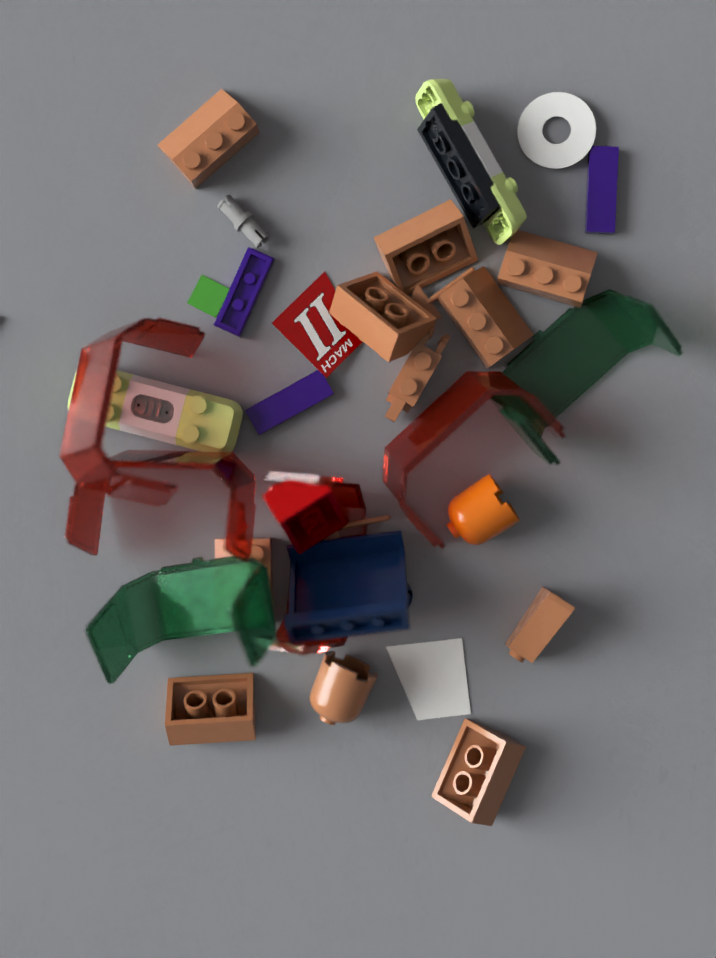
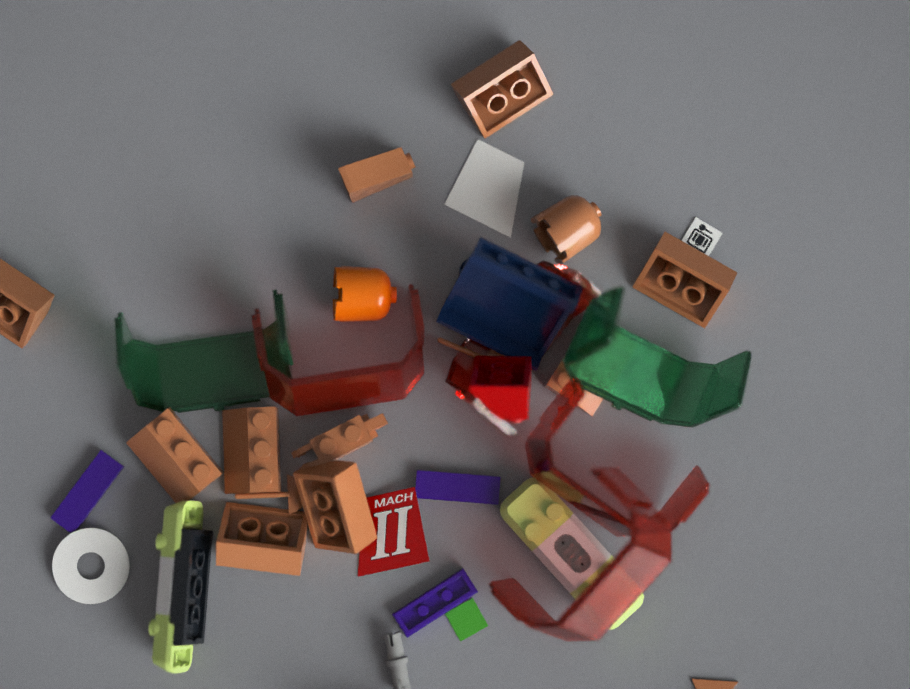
camera: 150 degrees left, 5 degrees down
(222, 756) = (702, 236): none -> white sticker

